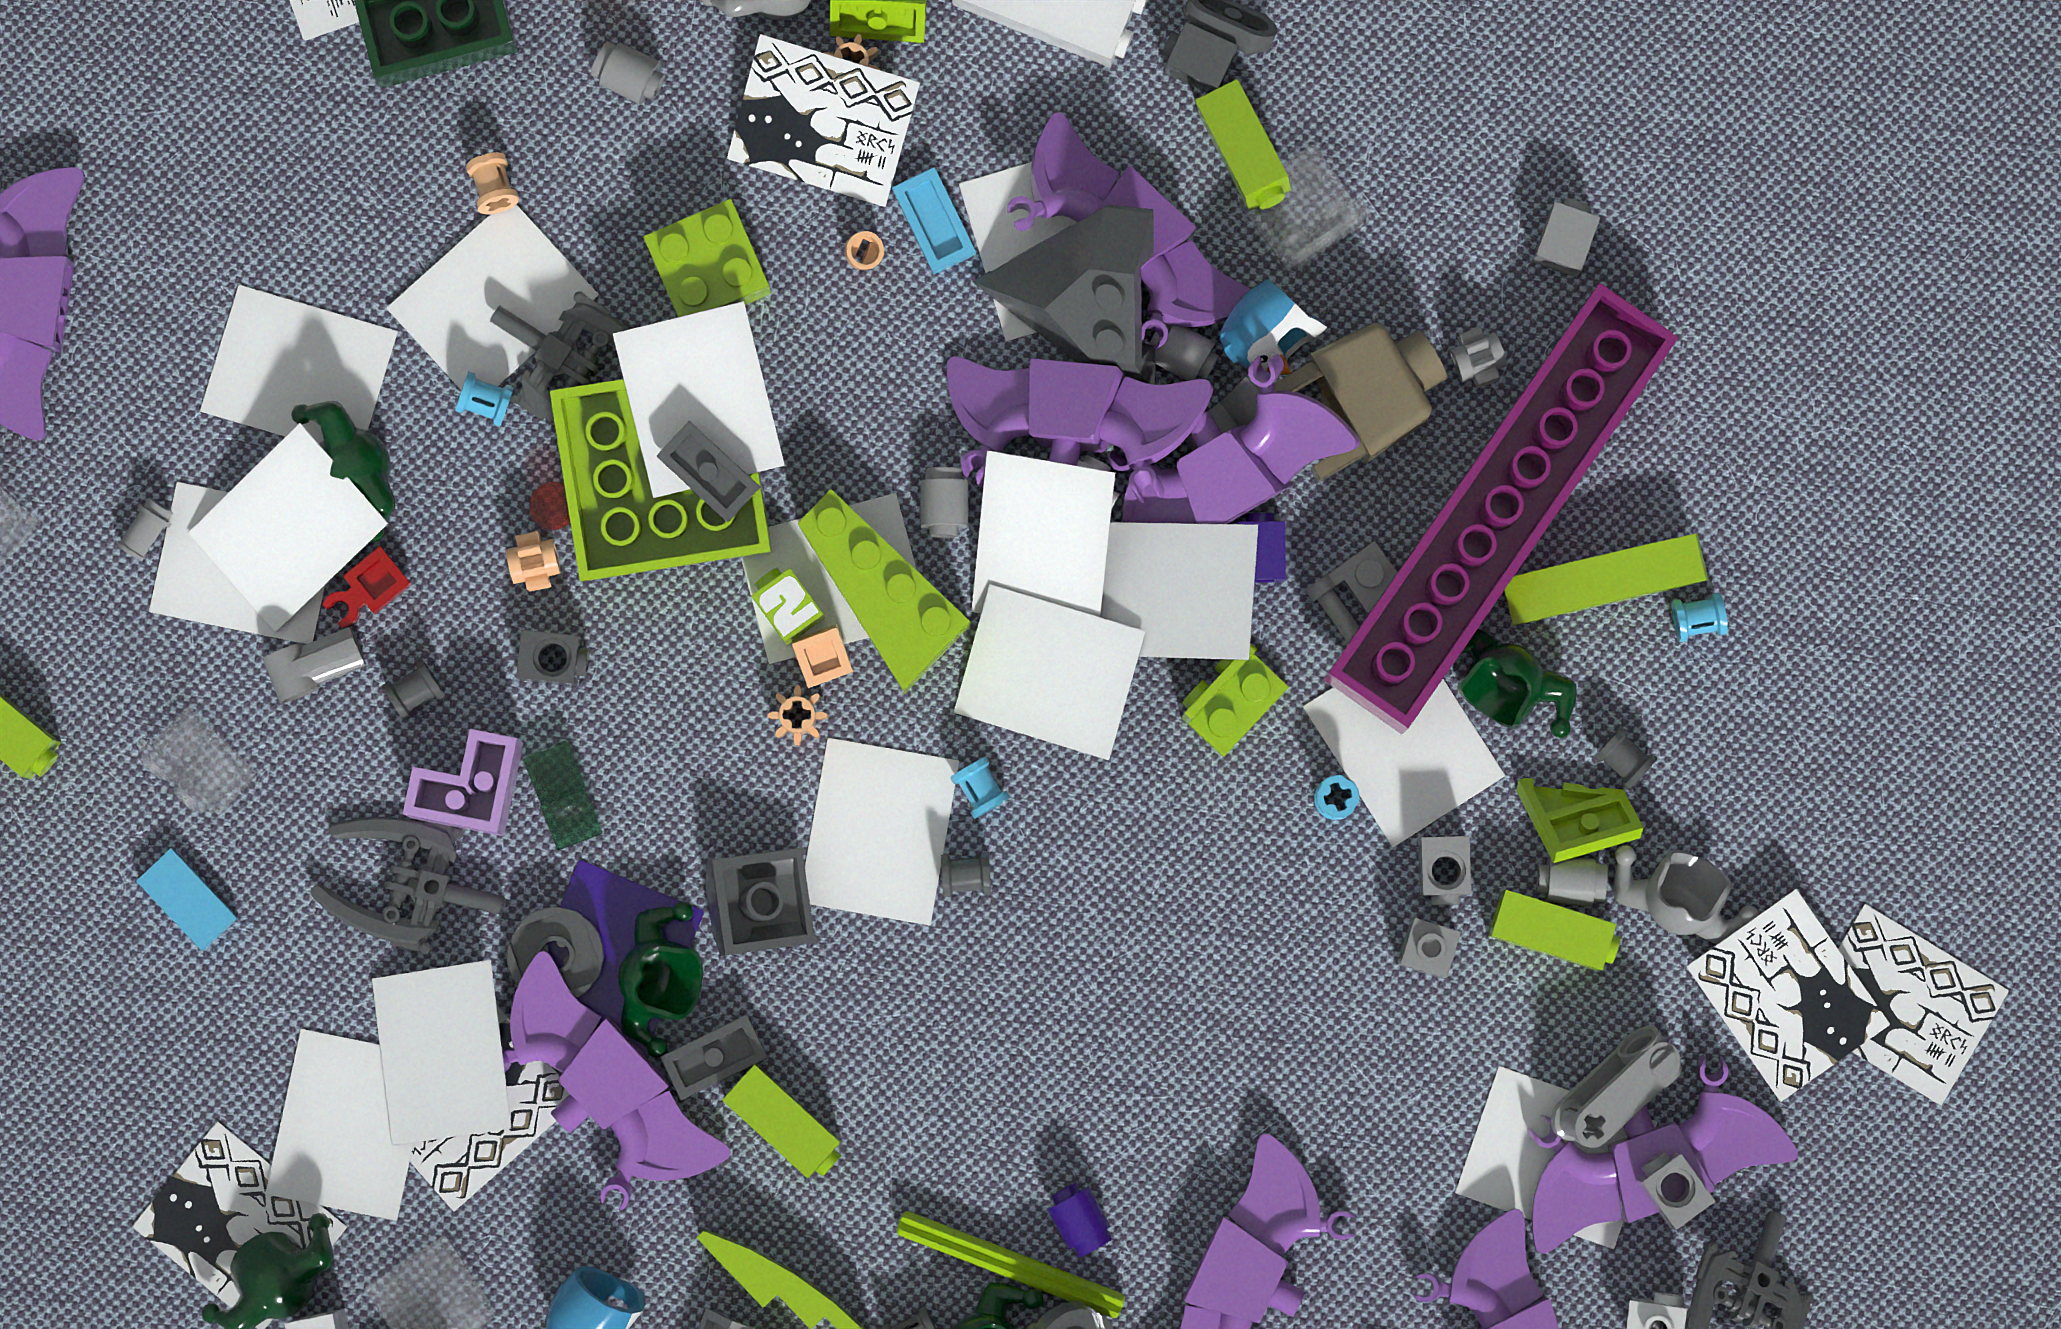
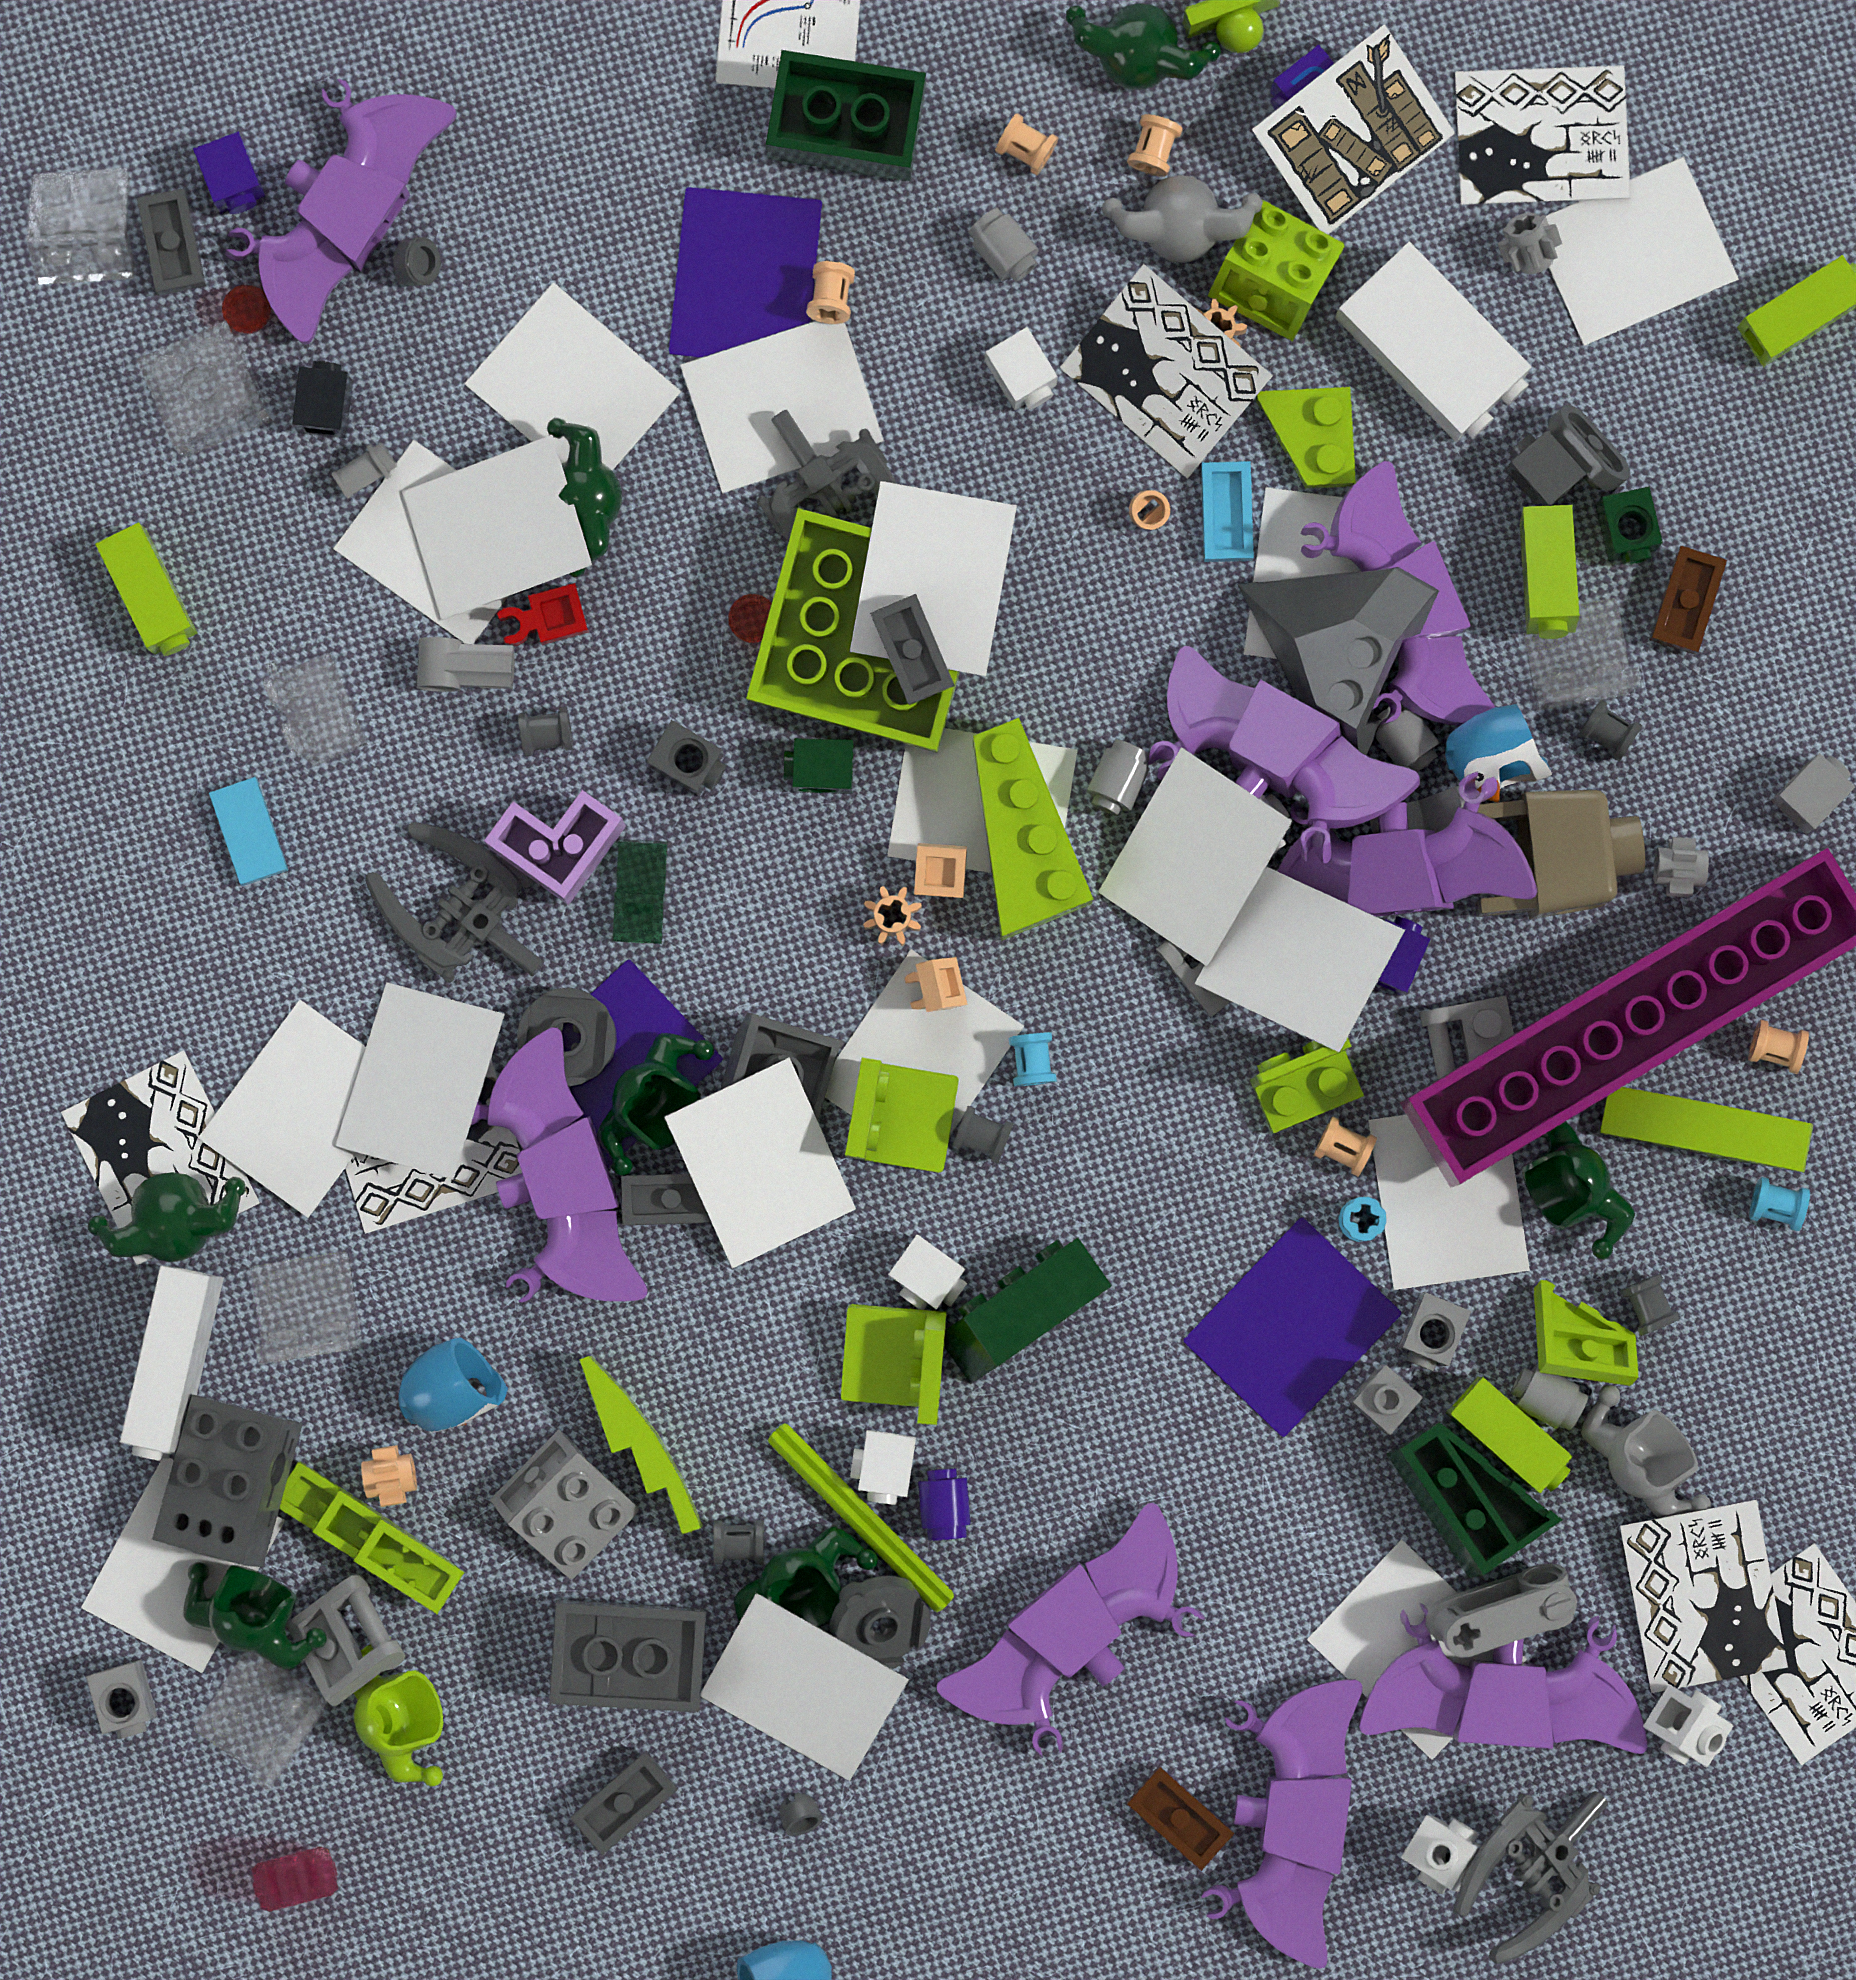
camera: 25 degrees right, 0 degrees up
(79, 483) = (322, 400): none -> black brick
(107, 321) = (416, 262): none -> dark grey tile
(402, 197) = (742, 268): none -> dark purple sticker
(484, 398) = (733, 489): medium azure bush -> none
(533, 561) = (711, 661): light nougat gear -> none
(673, 611) = (820, 766): none -> dark green brick
(694, 176) = (1022, 370): none -> white brick
(707, 261) = (999, 453): lime brick -> none
(779, 989) = (760, 1162): none -> white sticker
(783, 1122) = (709, 1289): lime brick -> none
(786, 604) = (928, 807): brick -> none
(867, 758) = (939, 984): none -> light nougat tile
(886, 890) = (901, 1116): none -> lime bracket
(973, 1022) = (927, 1275): none -> white brick
(976, 1109) = (894, 1358): none -> lime bracket
(980, 115) = (1314, 432): none -> lime wing
(1010, 1209) = (884, 1466): none -> white brick
(1049, 672) = (1146, 980): white sticker -> none
(1071, 1013) = (1024, 1308): none -> dark green wedge
(1296, 53) = (1635, 505): none -> dark green brick
(1301, 739) = (1353, 1159): none -> light nougat bush
(1317, 921) = (1292, 1327): none -> dark purple sticker
(1361, 264) = (1609, 730): none -> dark grey bush
(1378, 116) = (1688, 600): none -> reddish brown plate
(1542, 1004) = (1468, 1500): none -> dark green wedge
(1636, 477) = (1778, 1046): none -> light nougat bush
(1691, 1203) = (1532, 1745): light grey brick -> none
(1826, 1116) = (1688, 1726): none -> white brick

